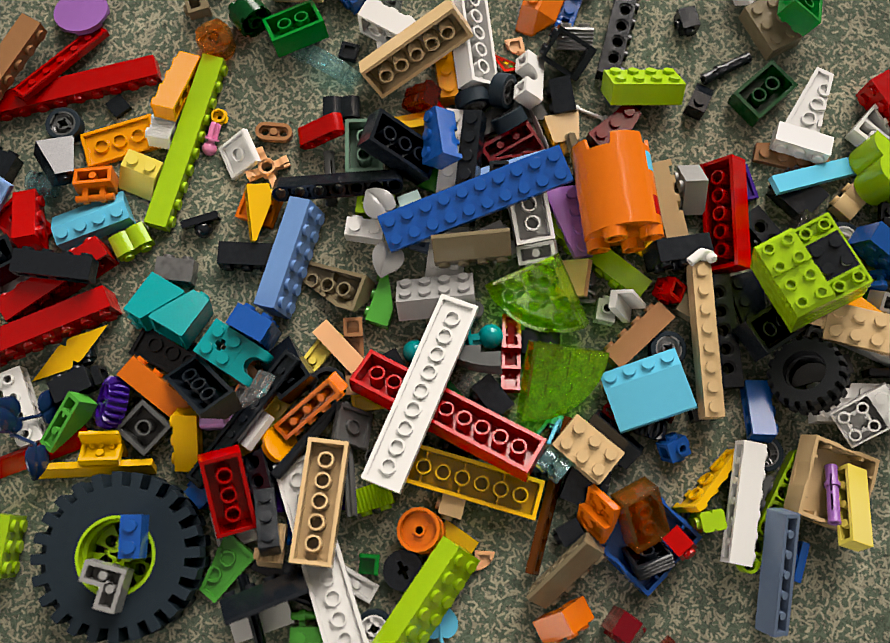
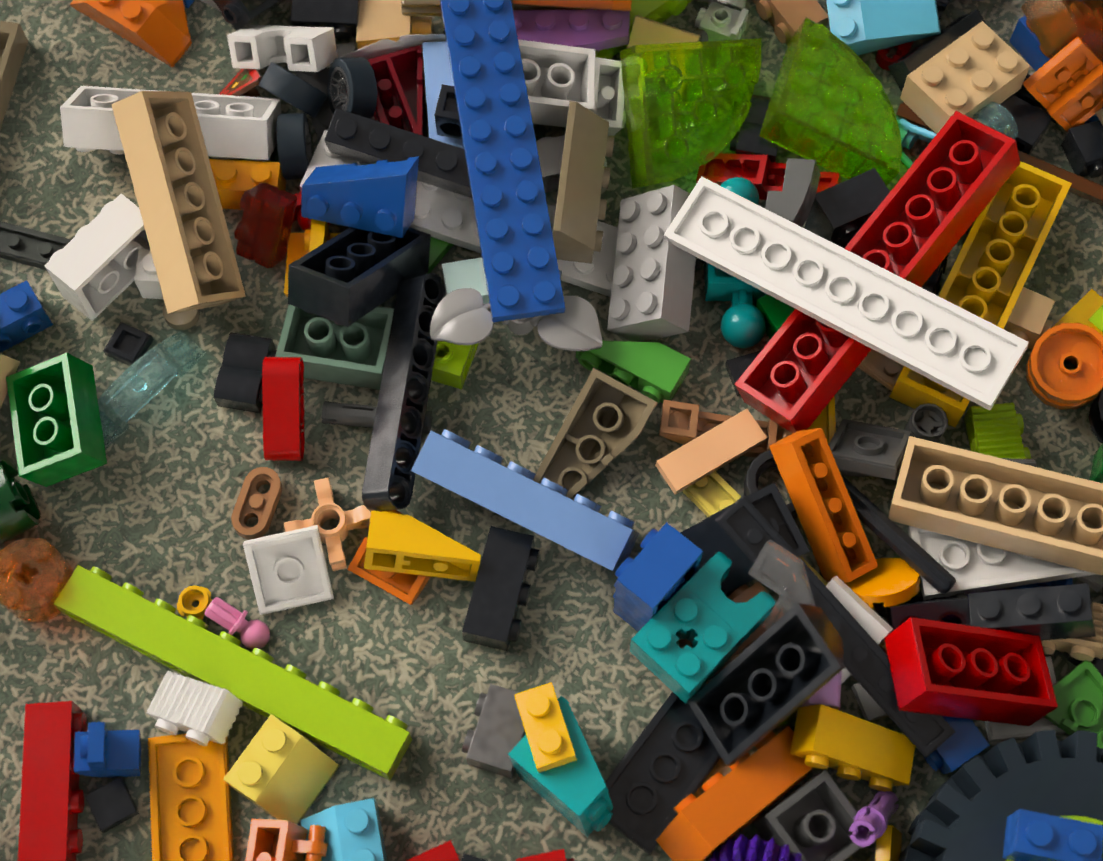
camera: 75 degrees left, 10 degrees down
(131, 242) = (419, 810): lime brick -> none
(137, 96) = (107, 752): none -> blue brick
(145, 450) = (873, 818): none -> medium lavender pin
(165, 285) = (545, 727): none -> yellow plate
(175, 87) = (111, 663): light orange brick -> none
(183, 318) = (614, 716): teal slope -> none
(201, 223) = (413, 667): black tile -> none
(363, 230) = (496, 370): white brick -> none
(515, 45) = (202, 69): light nougat tile -> none

